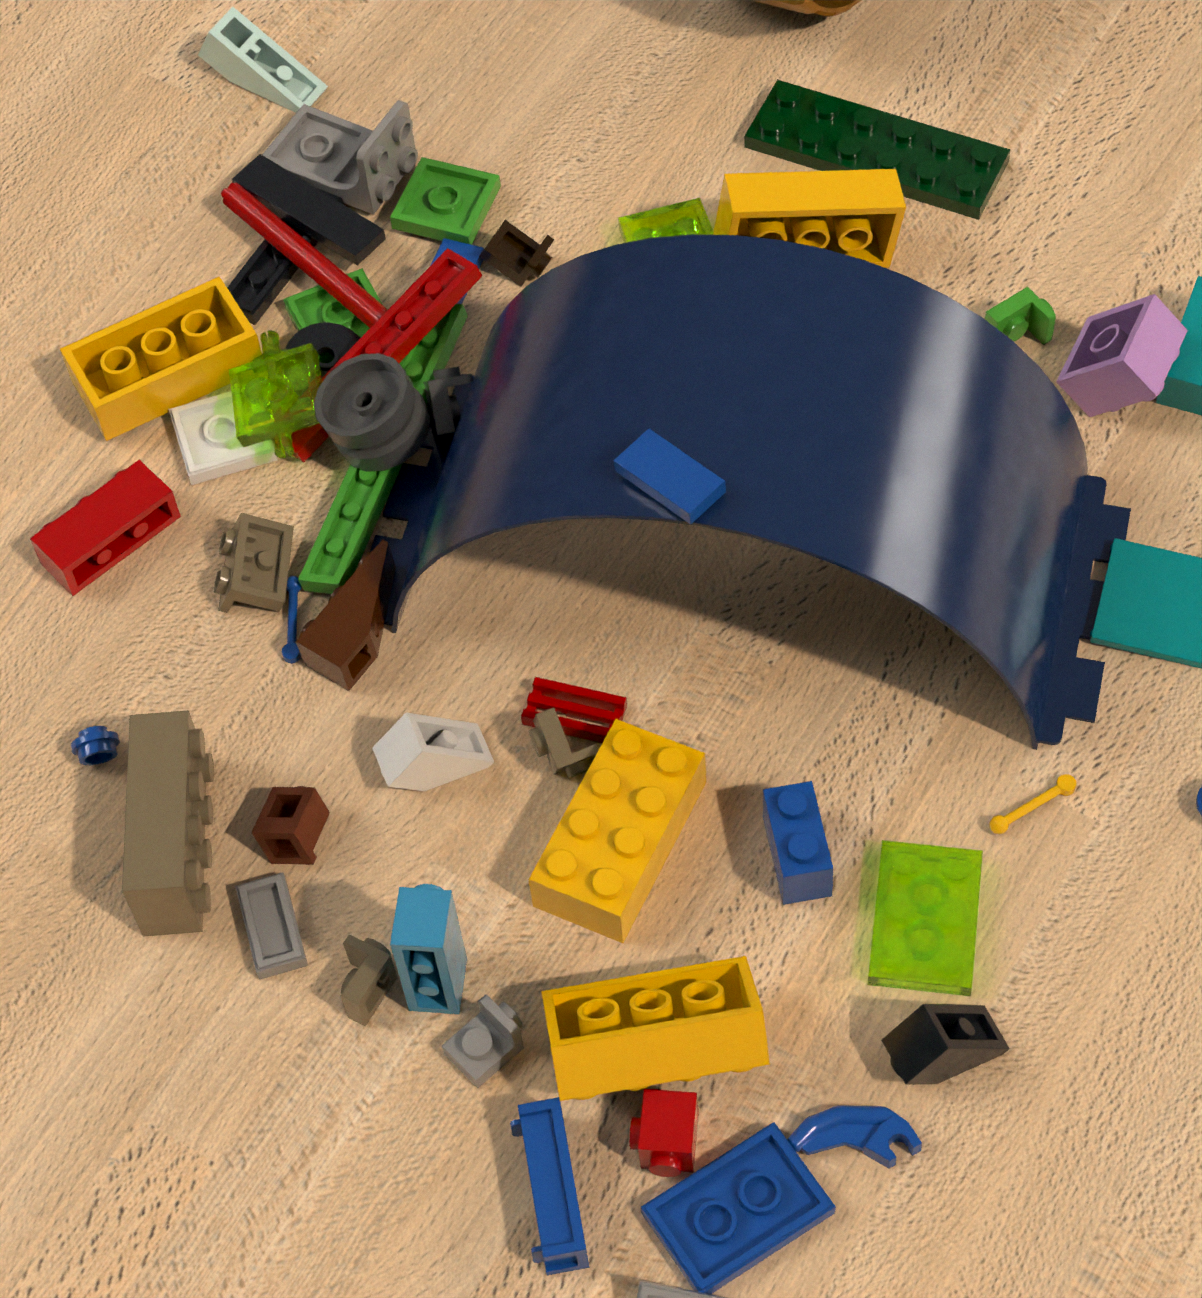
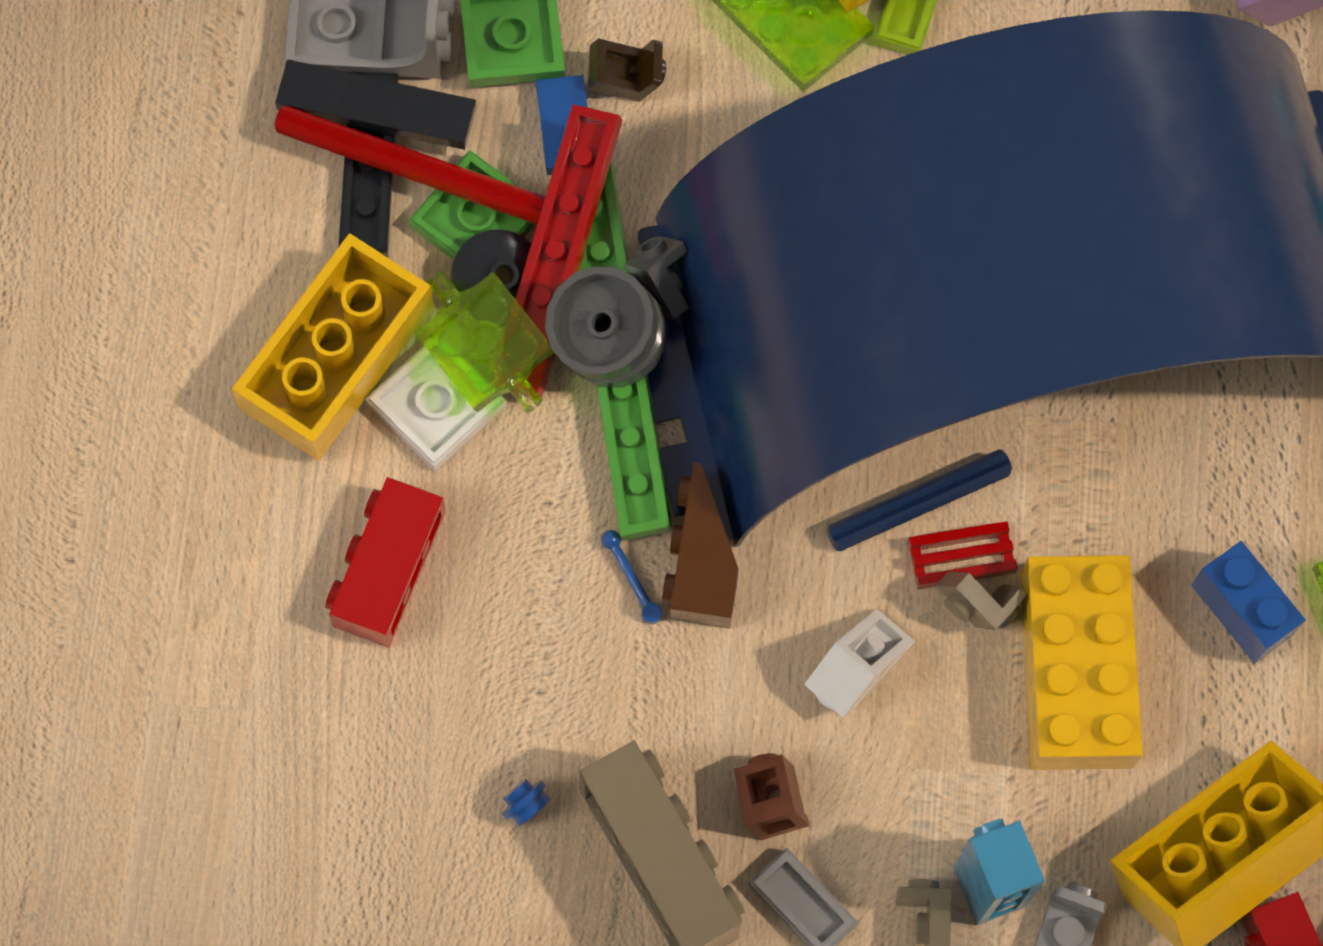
camera: 35 degrees left, 15 degrees up
(254, 564) = (563, 537): dark tan bracket -> none
(563, 654) = (919, 500): none -> dark blue axle
(670, 476) = (1064, 339): blue tile -> none

